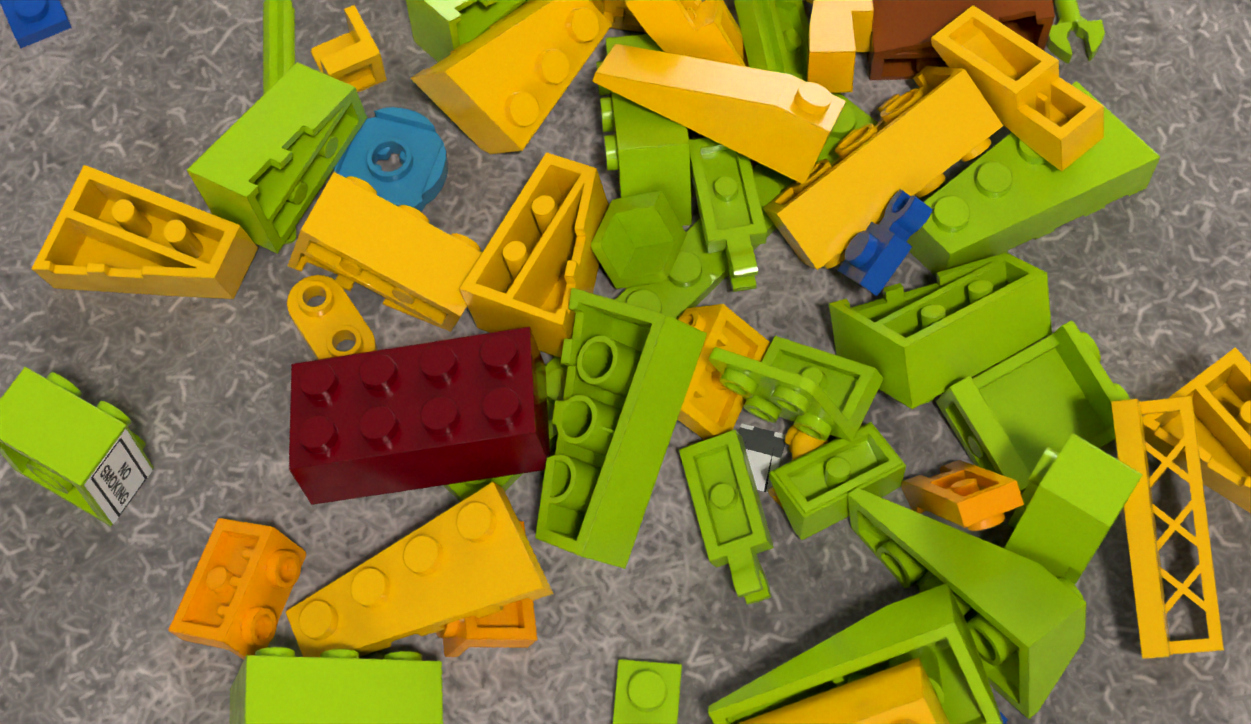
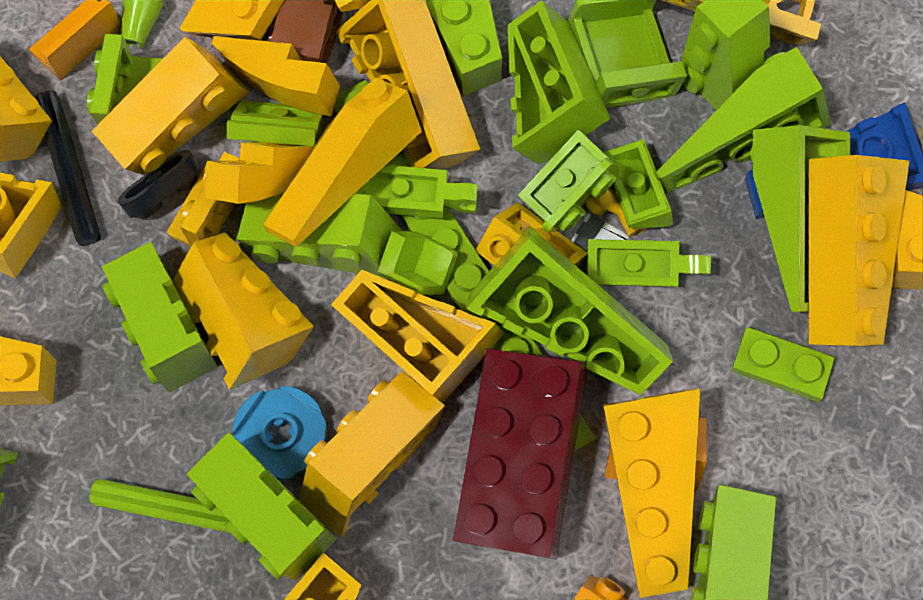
camera: 75 degrees left, 5 degrees up
(331, 321) = (409, 513): yellow plate -> none
(351, 56) = (169, 443): yellow panel -> none
(881, 248) = (487, 100): blue plate -> none
(964, 495) = (686, 103): light orange plate -> none

